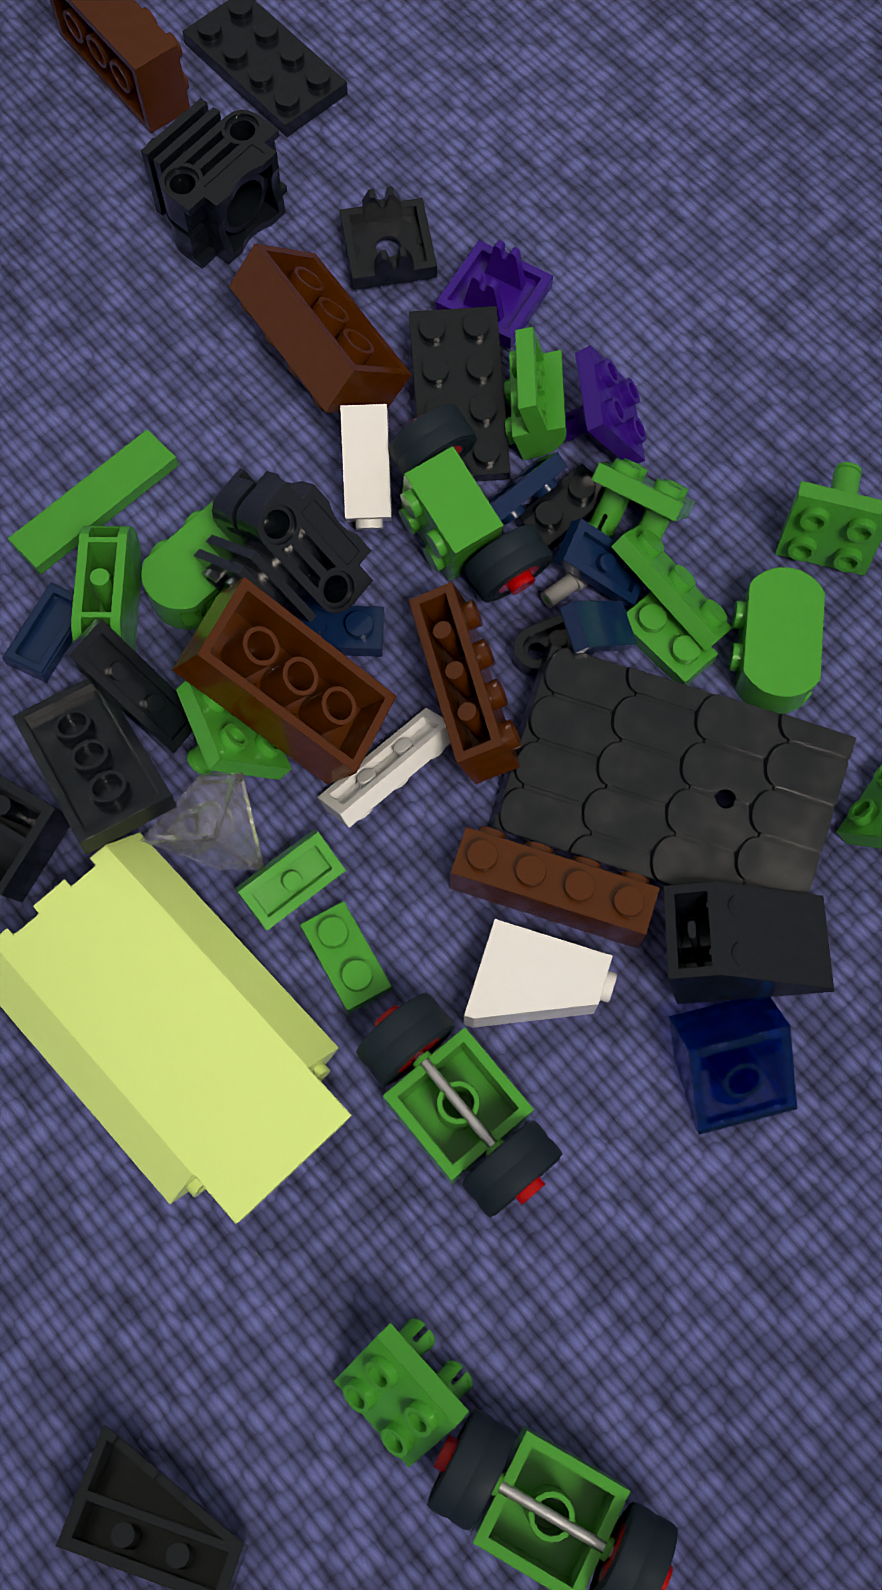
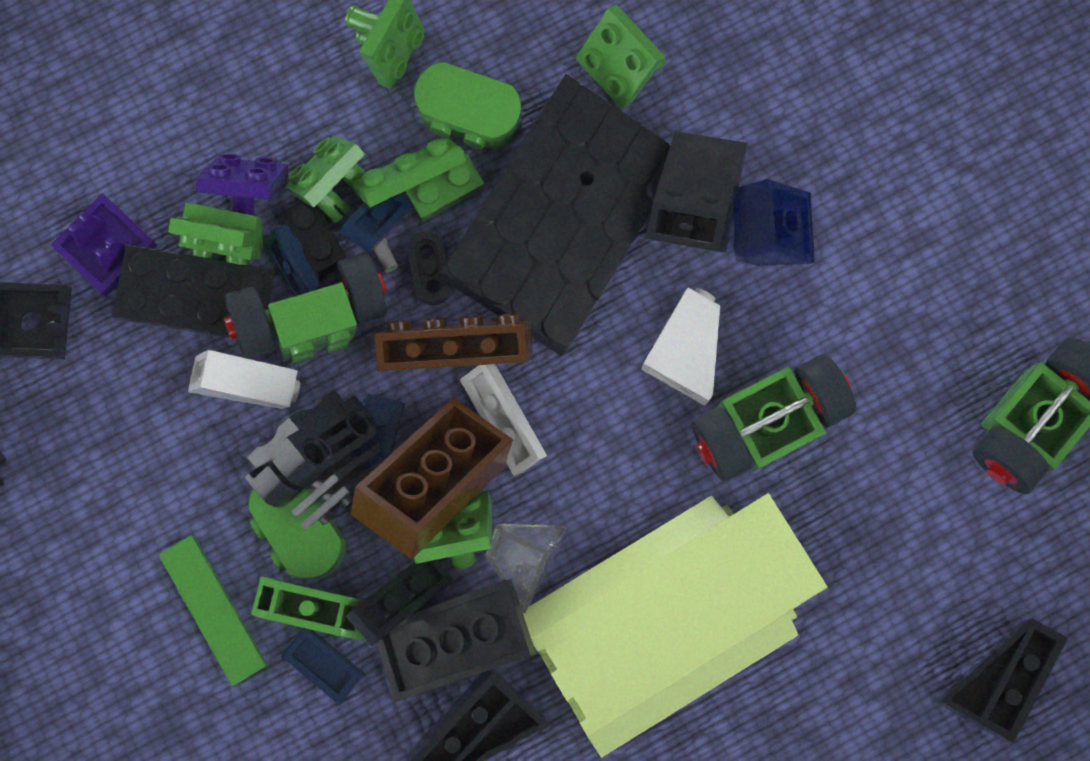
camera: 75 degrees left, 10 degrees up
(290, 879) = (576, 507): bright green plate -> none
(318, 329) = (110, 393): reddish brown brick -> none
(346, 957) = (640, 479): bright green plate -> none
(403, 1394) = (953, 498): bright green plate -> none
(554, 887) = (624, 317): reddish brown brick -> none
(597, 626) = (433, 234): dark blue tile -> none

